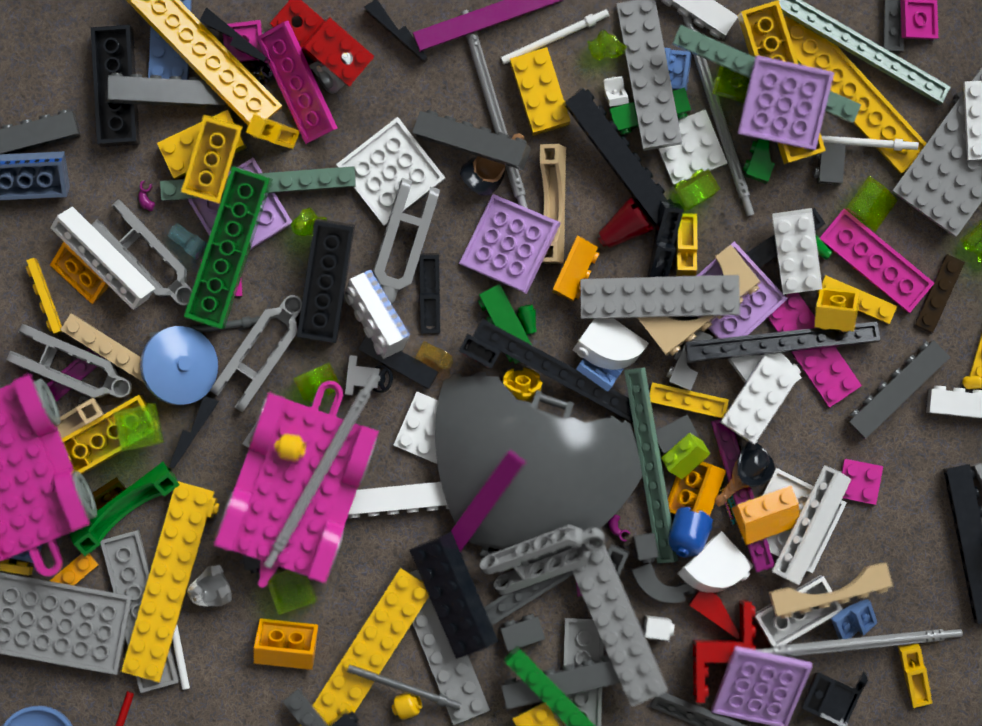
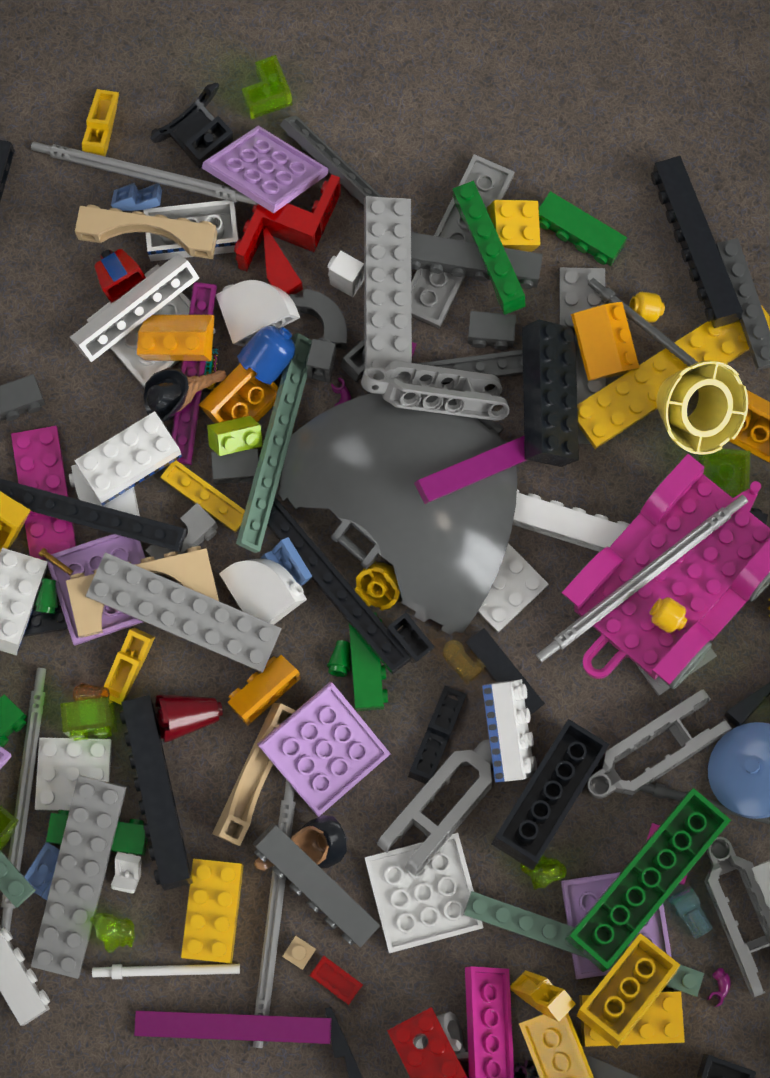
camera: 155 degrees left, 10 degrees down
(310, 381) = (612, 689): clear neon green slope -> none
(317, 627) = (719, 409): none -> light yellow cone
(359, 376) = (550, 670): light grey piece -> none
(428, 82) = (336, 980): none -> red plate
(428, 658) = (605, 341): none -> light orange slope
(463, 90) = (299, 952): none -> tan plate
(665, 236) = (145, 683): black slope -> none
(705, 209) = (88, 692): none -> clear orange cone
(770, 266) = (47, 597): none -> green cone
(777, 297) = (43, 552): none -> pearl gold piece
(839, 549) = (117, 273): none -> red torso
(864, 482) = (55, 339): dark pink plate -> none

